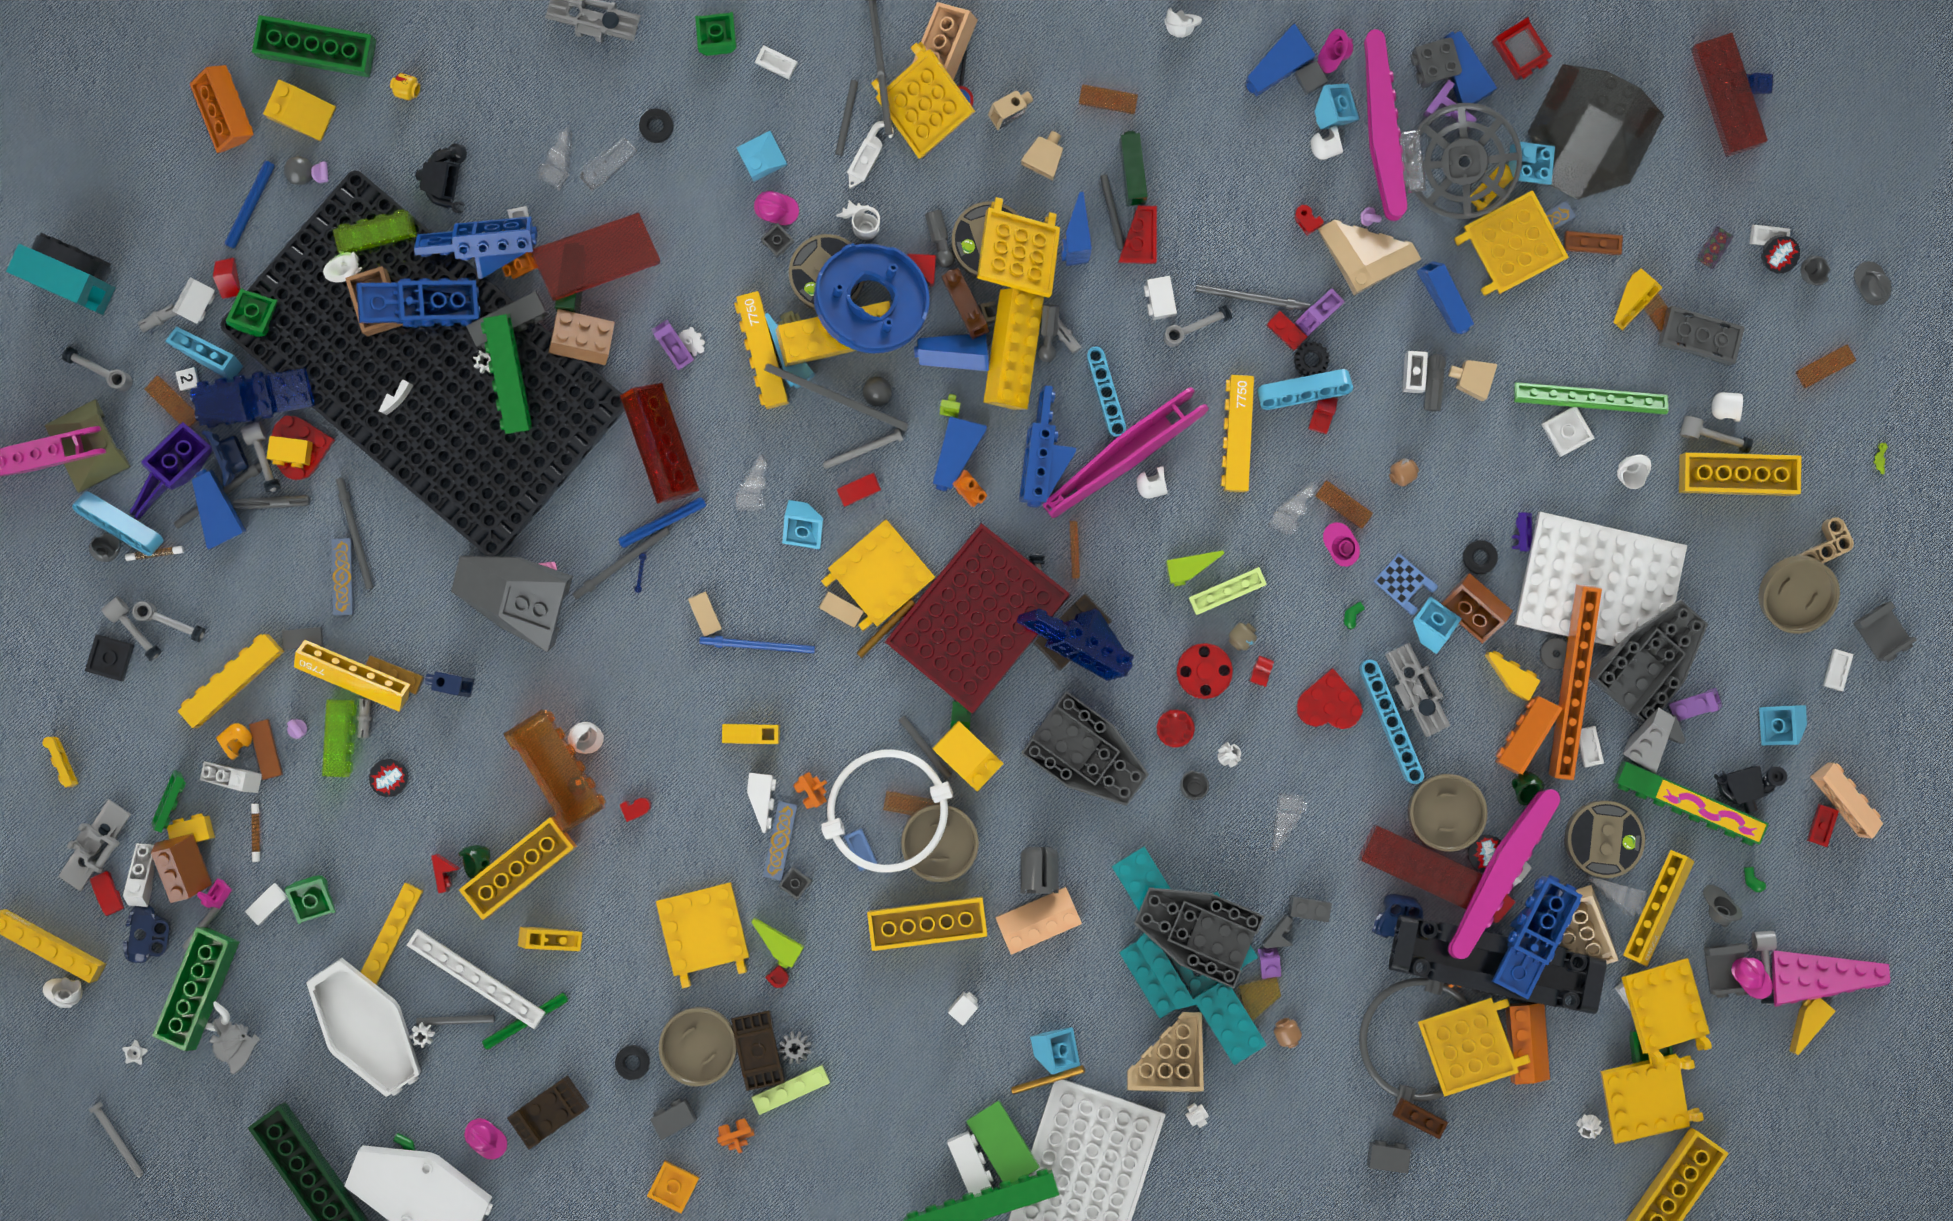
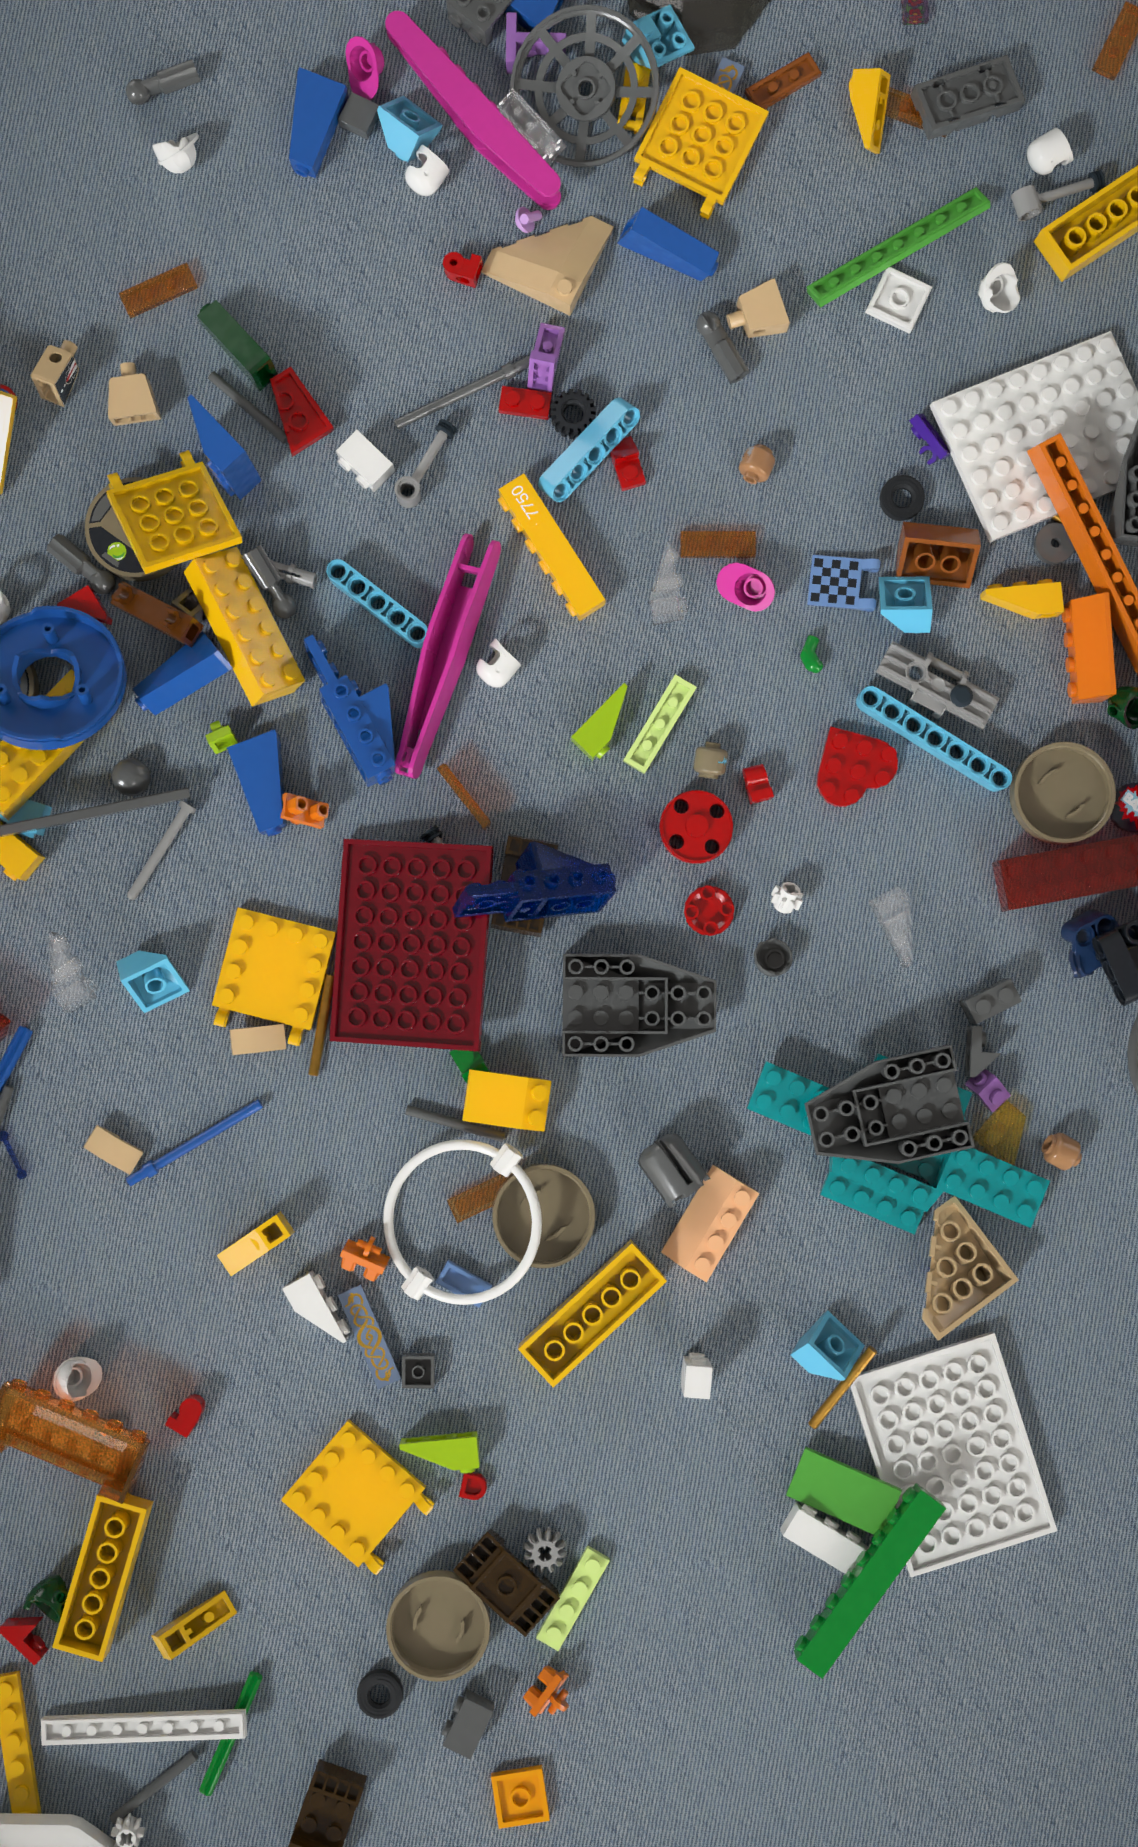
camera: 45 degrees left, 0 degrees up
(858, 489) = (186, 896): red slope -> none
(1197, 1115) = (1028, 1309): white gear -> none
(1415, 372) = (692, 348): white brick -> none

